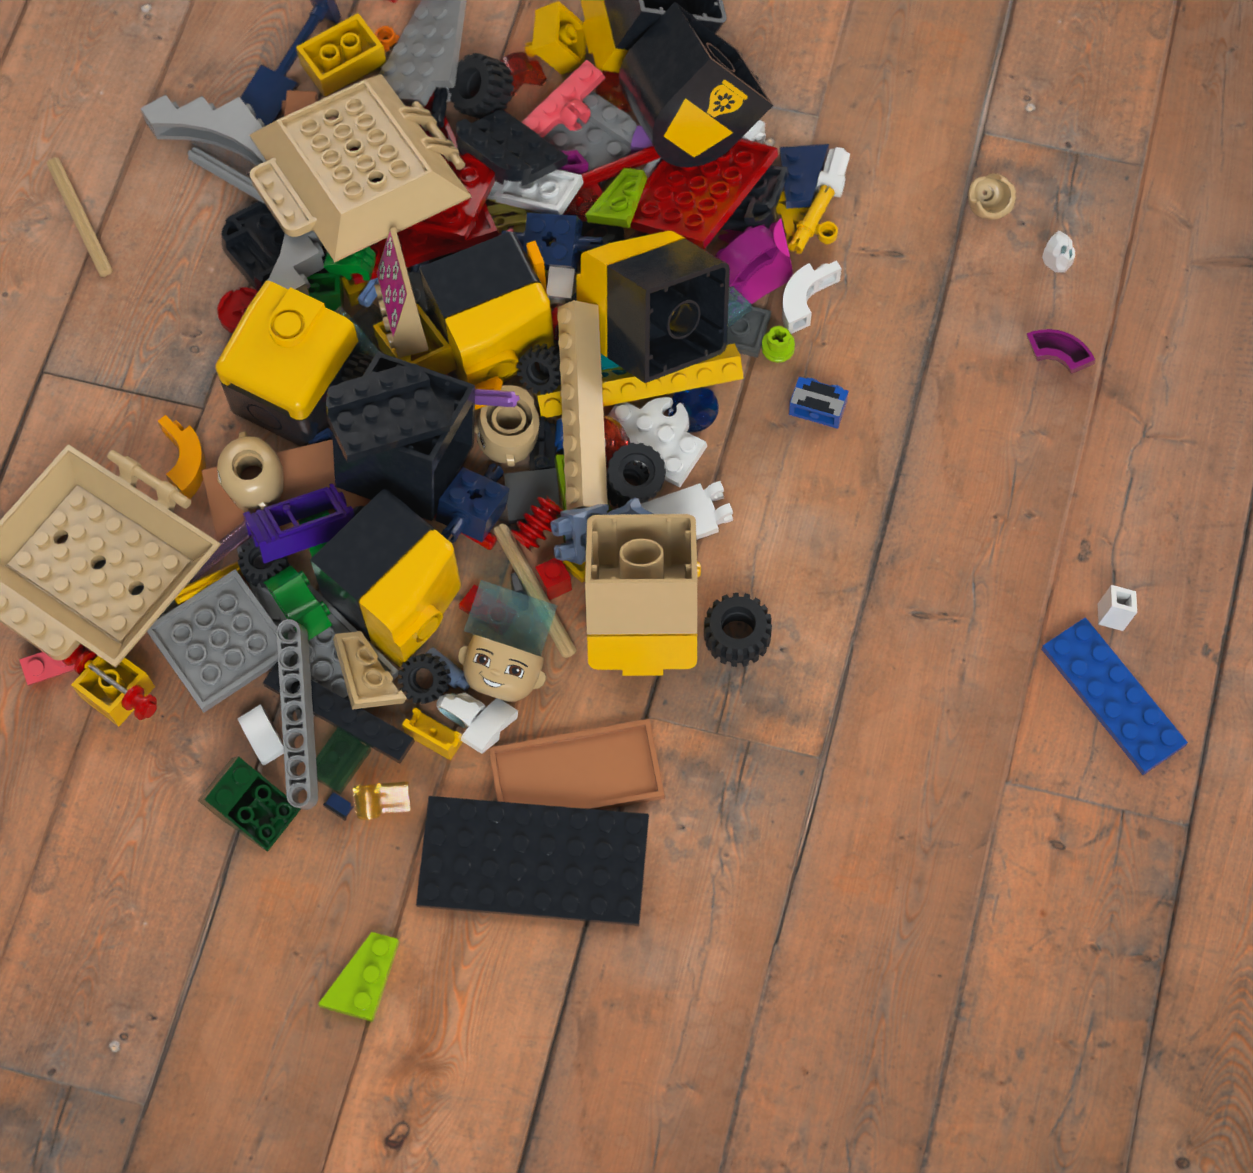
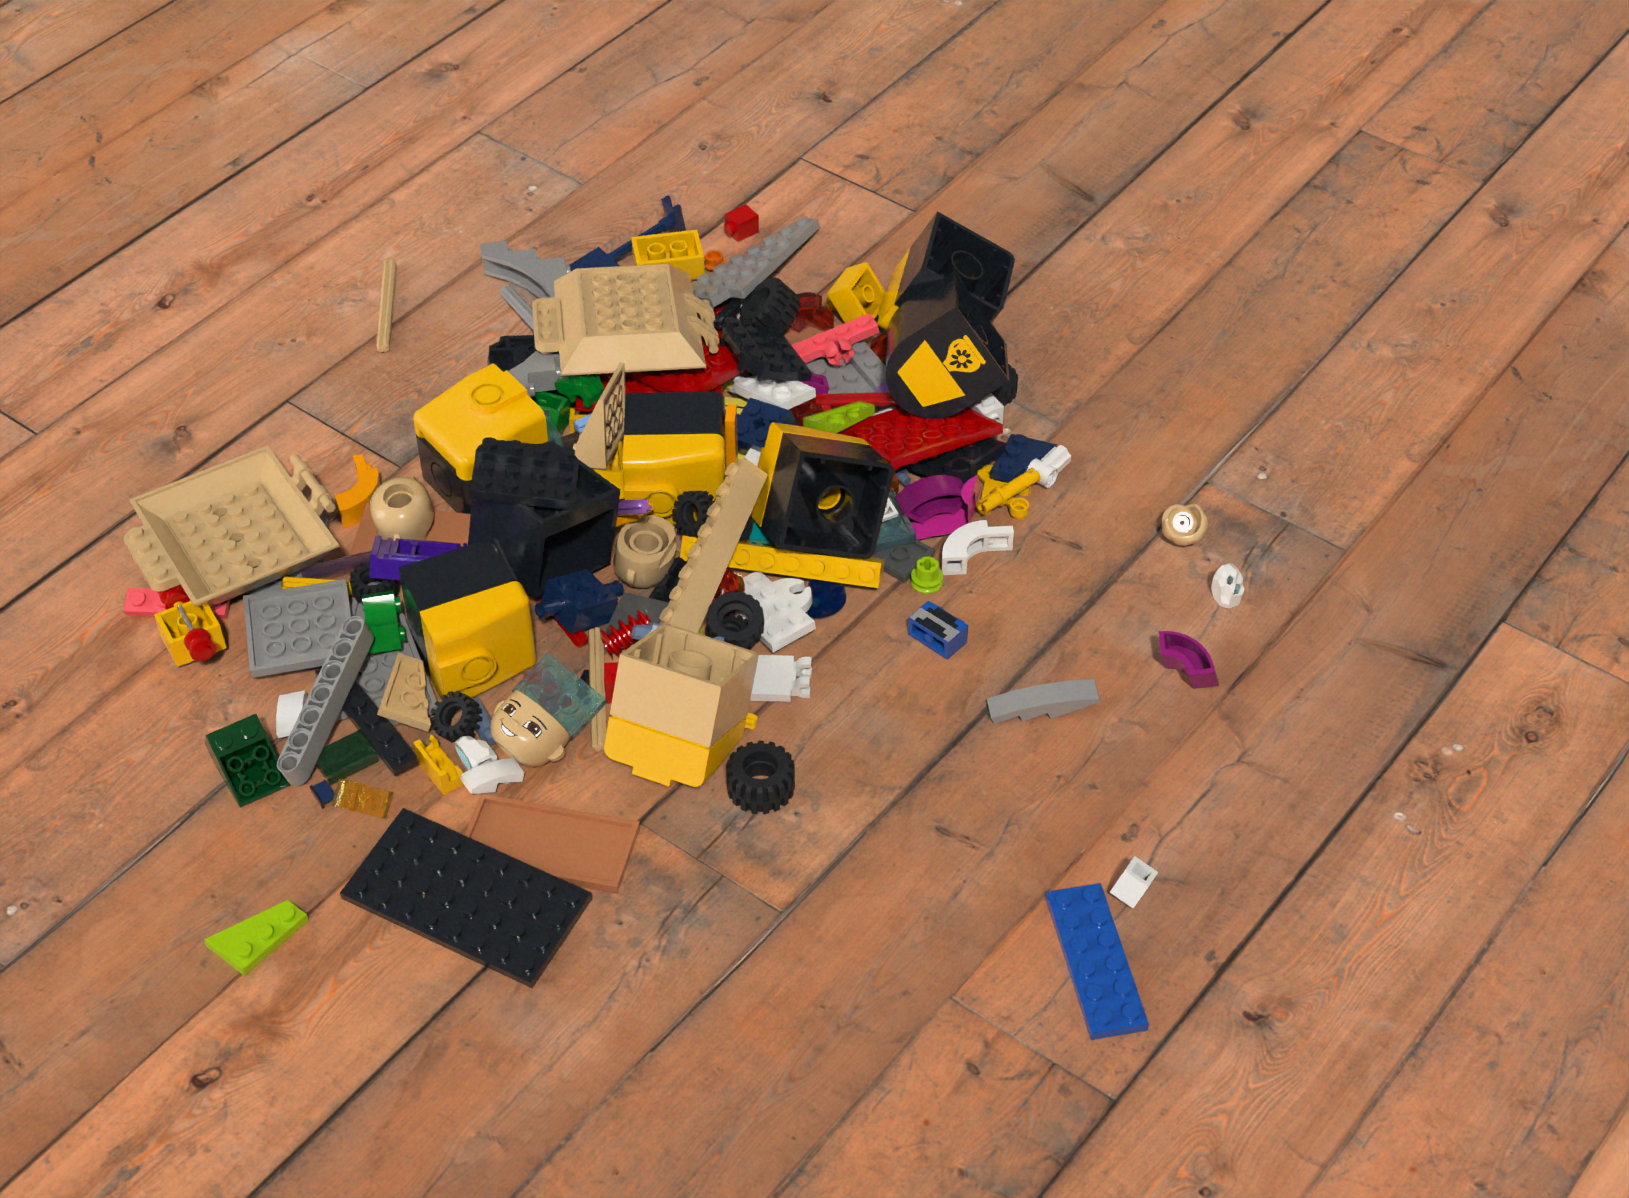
camera: 20 degrees right, 20 degrees down
(949, 443) = (1049, 698): none -> light grey slope

